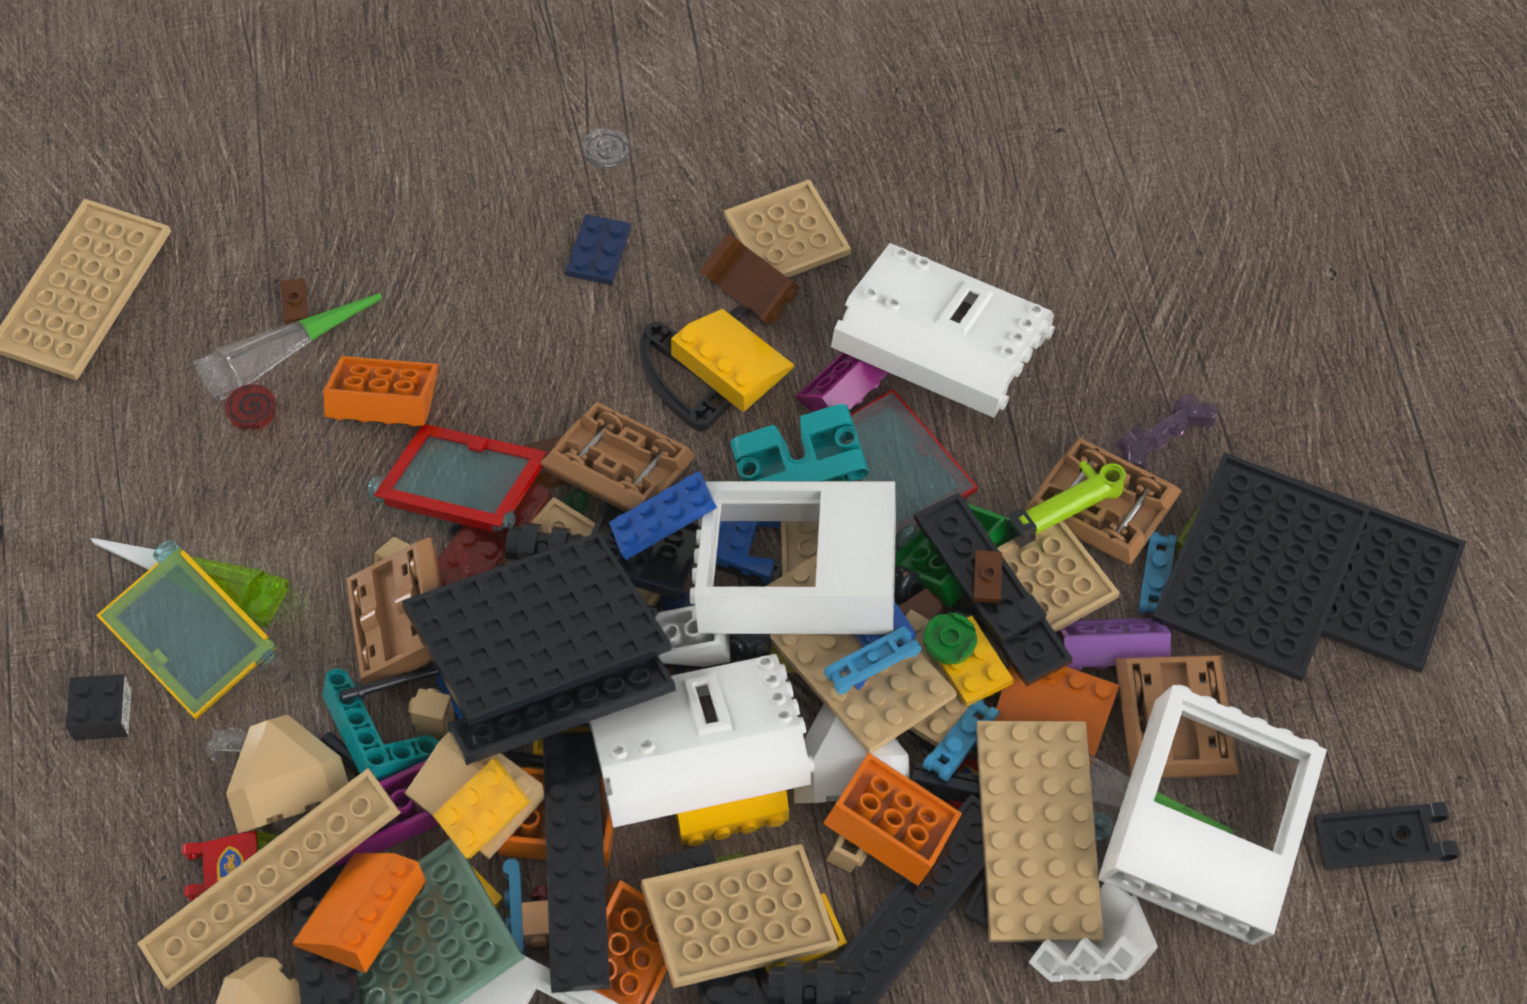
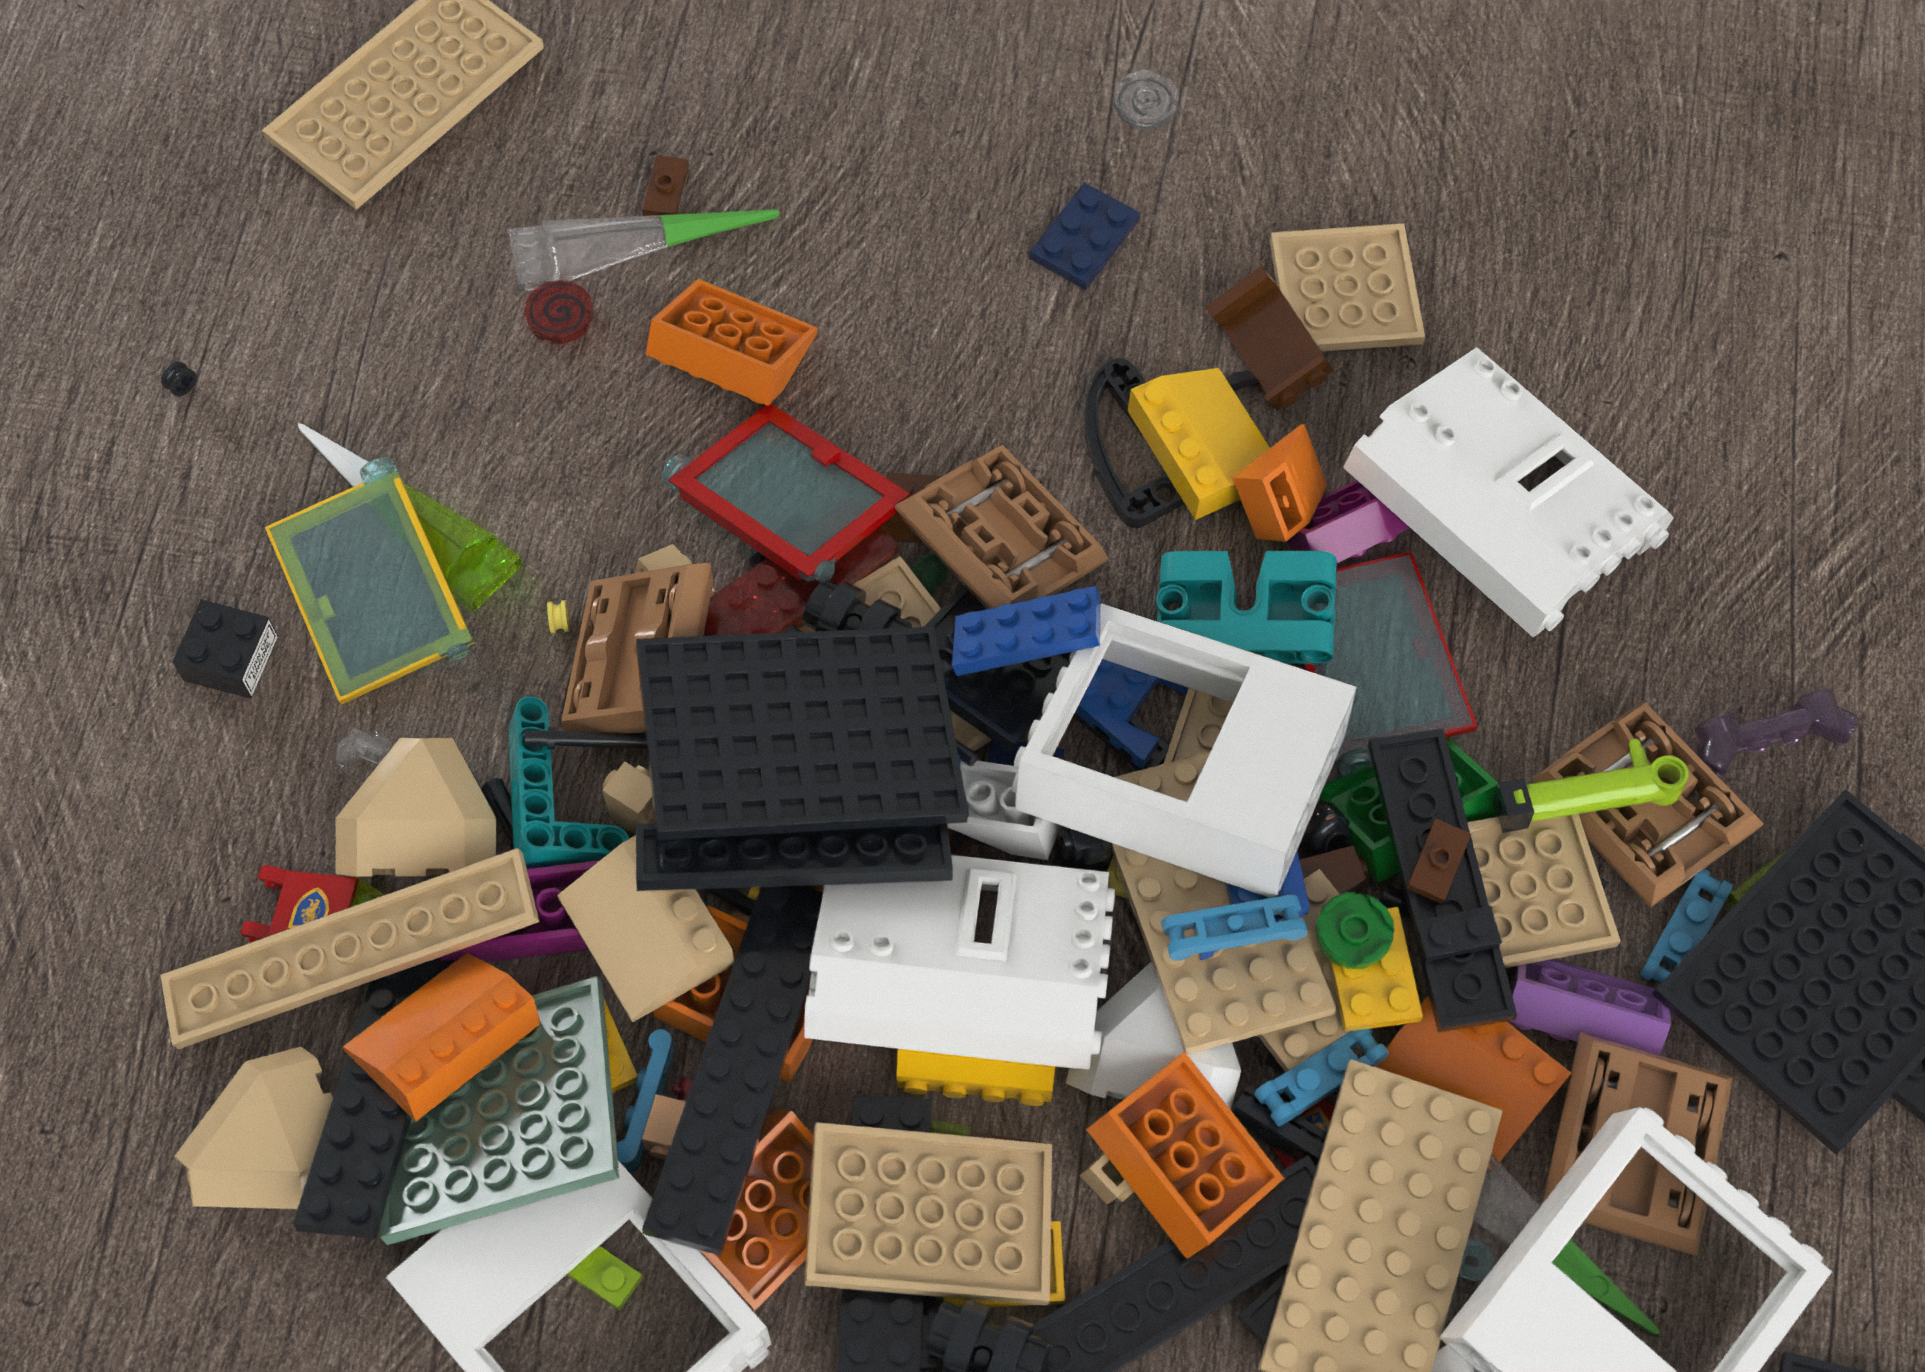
camera: 20 degrees right, 5 degrees up
(330, 611) = (558, 616): none -> light yellow bush
(481, 808) = (642, 952): yellow plate -> none
(794, 373) = (1282, 487): none -> orange slope

